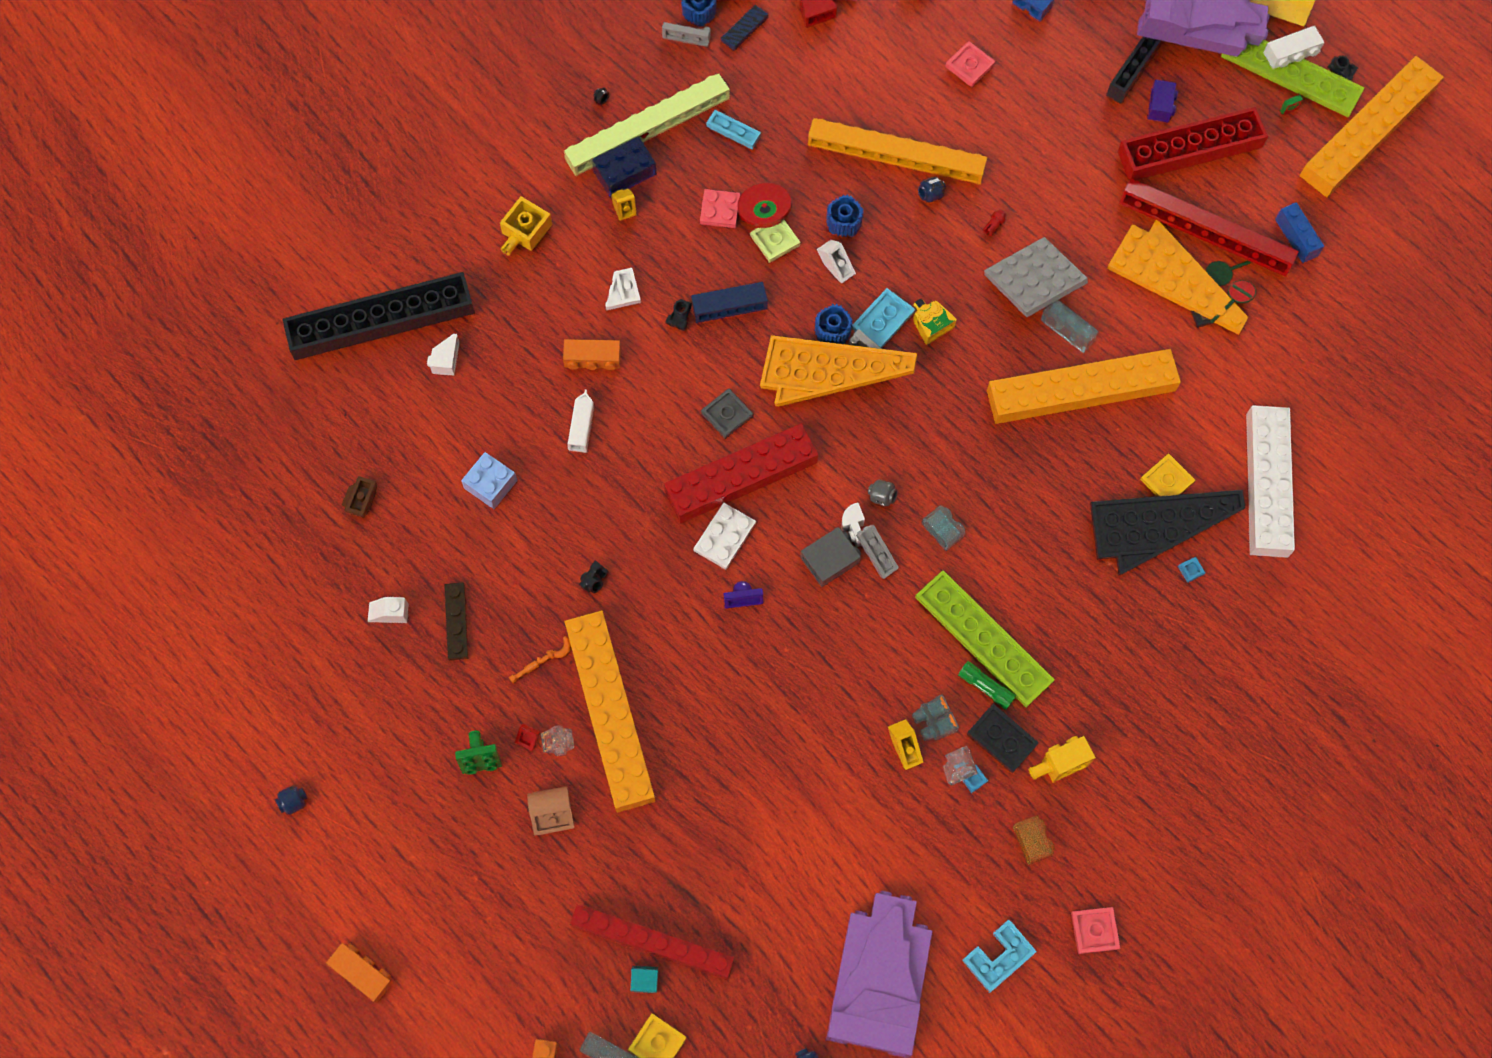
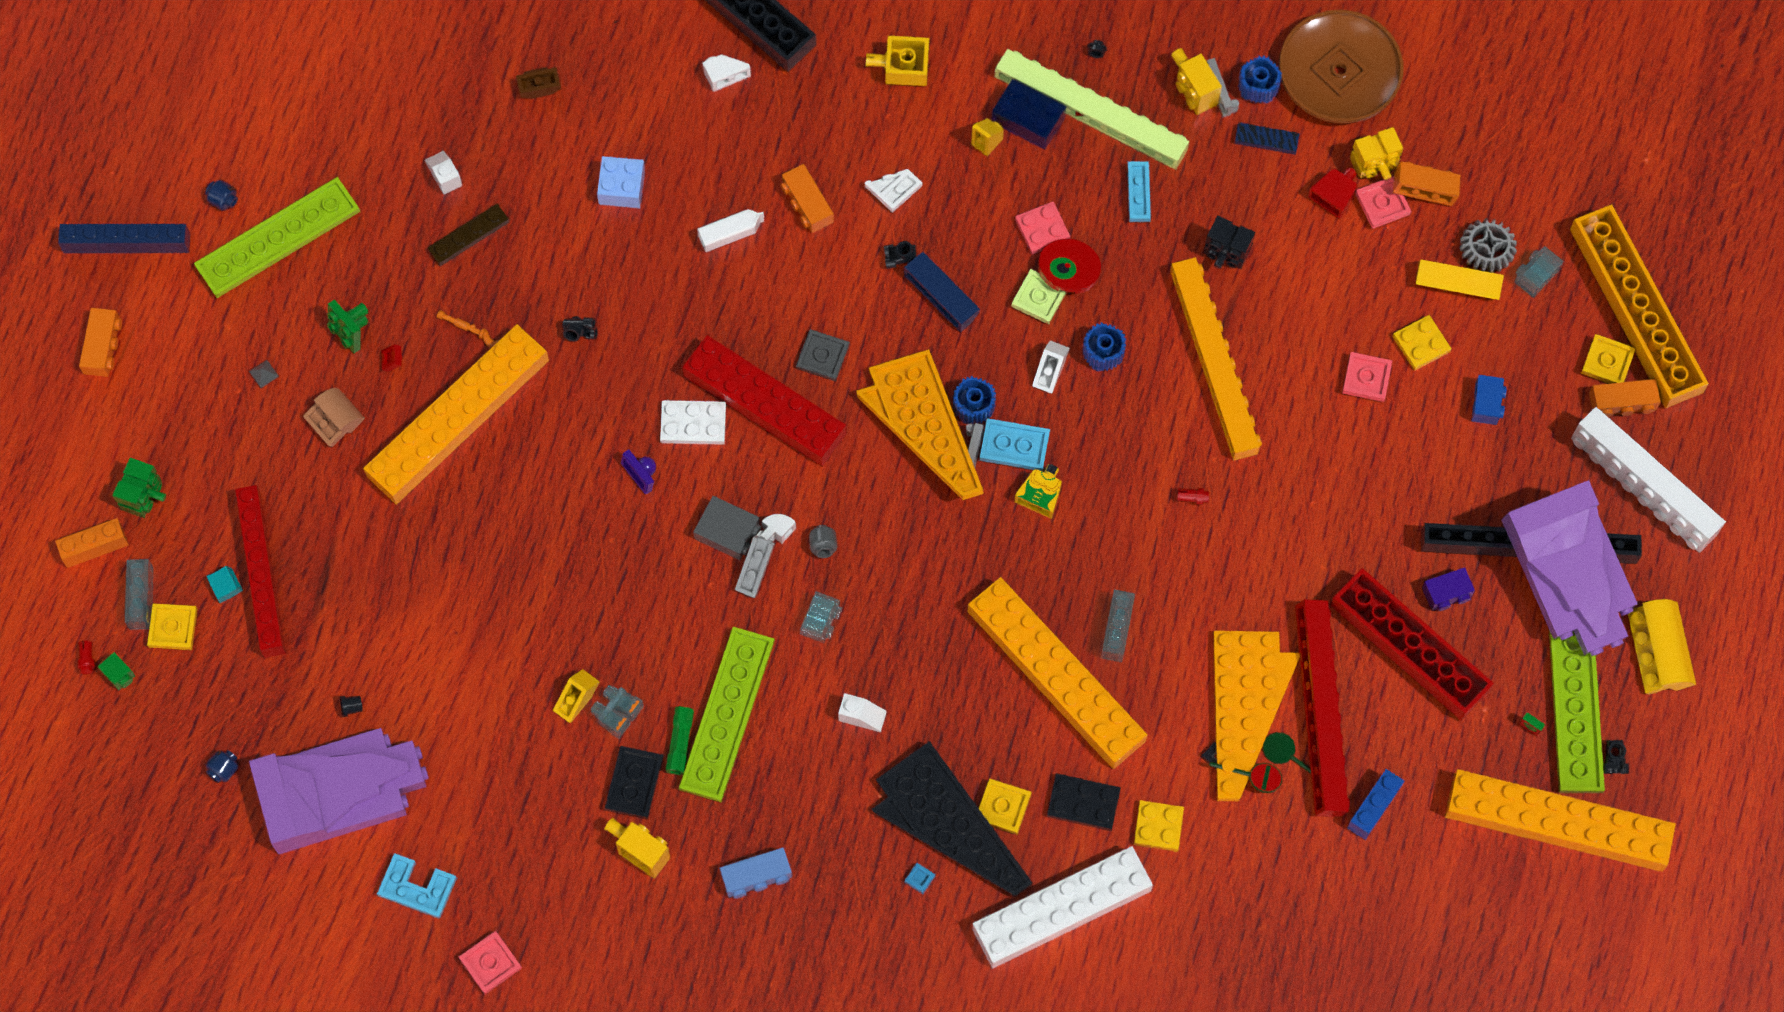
camera: 60 degrees right, 0 degrees up
(277, 902) = (124, 238): none -> dark blue brick
(359, 775) = (277, 237): none -> lime plate
(474, 849) = (263, 373): none -> dark grey slope
(519, 1006) = (138, 488): none -> green brick
(561, 739) = (401, 385): clear brick -> none
(675, 42) = (1197, 82): none -> yellow brick
(812, 929) = (350, 705): none -> black piece
(815, 91) = (1228, 243): none -> black brick
(931, 189) = (1191, 414): dark blue head -> none
(959, 766) = (581, 753): clear brick -> none
(963, 18) = (1421, 342): none -> yellow plate
(976, 781) = (579, 777): dark azure tile -> none
(1033, 839) = (547, 861): clear yellow brick -> none
(1035, 276) = (1151, 564): light grey plate -> none
(1037, 541) = (861, 713): none -> white slope
(1128, 685) = (756, 873): none -> medium blue brick
(1191, 424) = (1083, 802): none -> black plate
(1237, 383) = (1158, 826): none -> yellow plate
(1293, 47) = (1600, 690): white brick -> none

